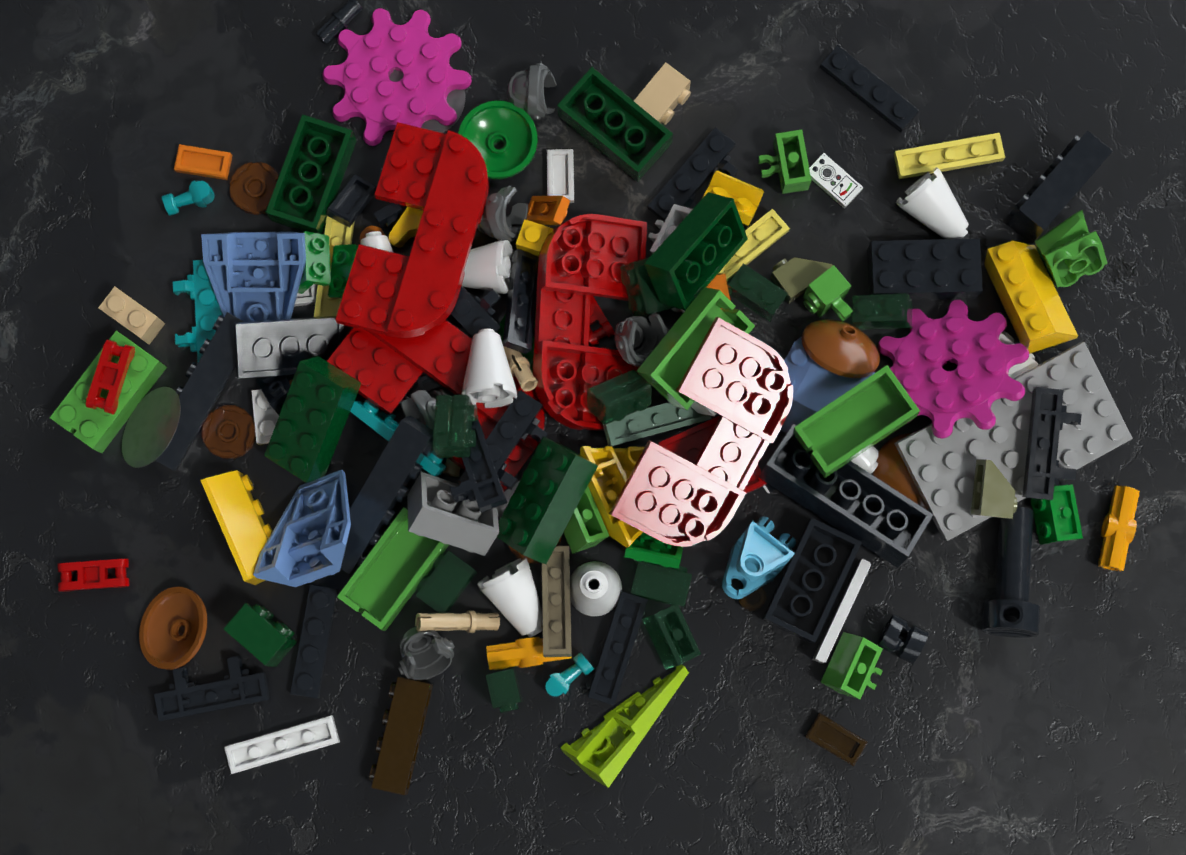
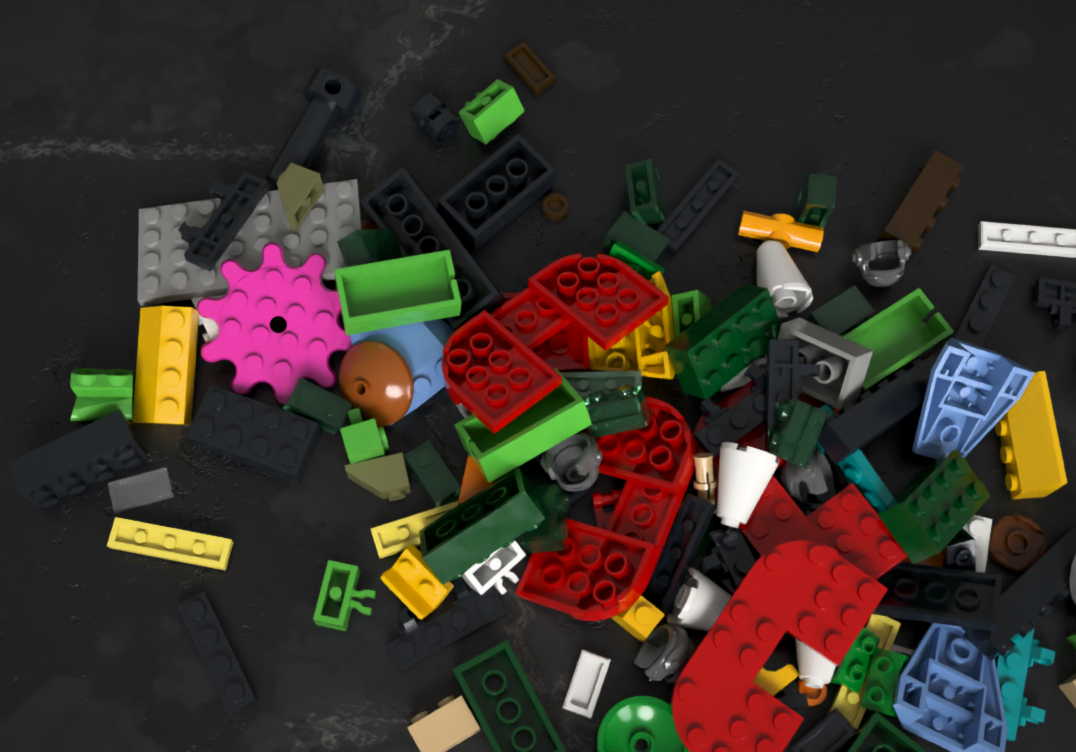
camera: 170 degrees left, 10 degrees down
(260, 634) = (1034, 329): dark green brick -> none
(449, 621) = (830, 273): tan pin -> none
(548, 209) = (617, 642): orange plate -> none
(556, 604) = (744, 250): dark tan plate -> none
(560, 682) = (760, 199): teal leg -> none
(596, 601) = (700, 262): white cone -> none
(612, 742) = (727, 135): lime wedge -> none
(756, 558) = (539, 226): medium azure piece -> none
(834, 180) = (300, 565): white tile -> none
(842, 611) = (478, 158): white tile -> none
(898, 460) = (369, 246): none -> clear green brick
(935, 206) = (213, 495): white cone -> none
(997, 192) = (140, 490): none -> clear tile
(1057, 518) = (245, 157): green bracket -> none
(1118, 528) = (194, 139): light orange piece -> none

